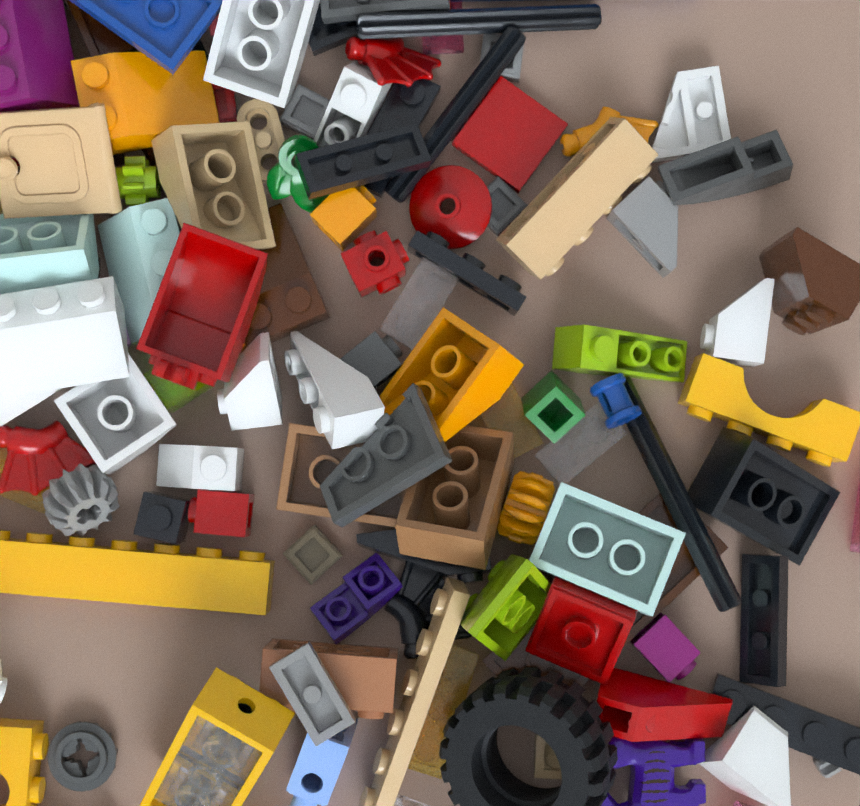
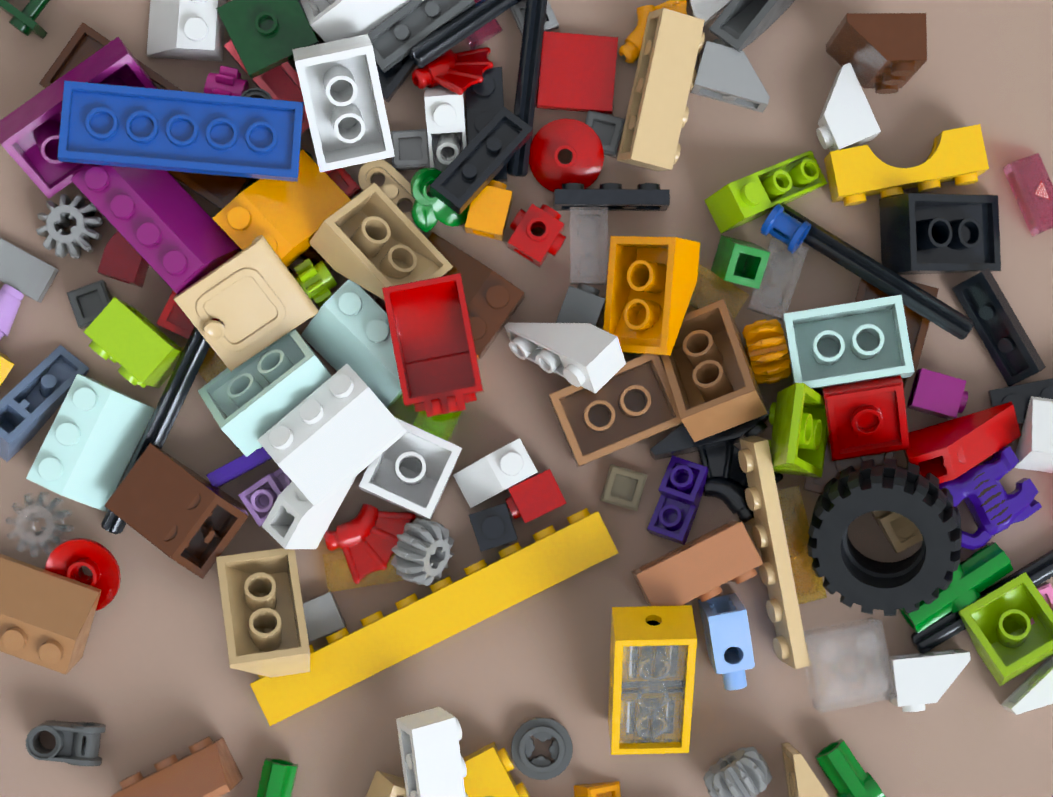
camera: 25 degrees left, 0 degrees up
(254, 390) = (505, 389): white slope -> none
(312, 693) = (695, 583): light grey plate -> none
(390, 461) = (646, 373): dark grey wing -> none

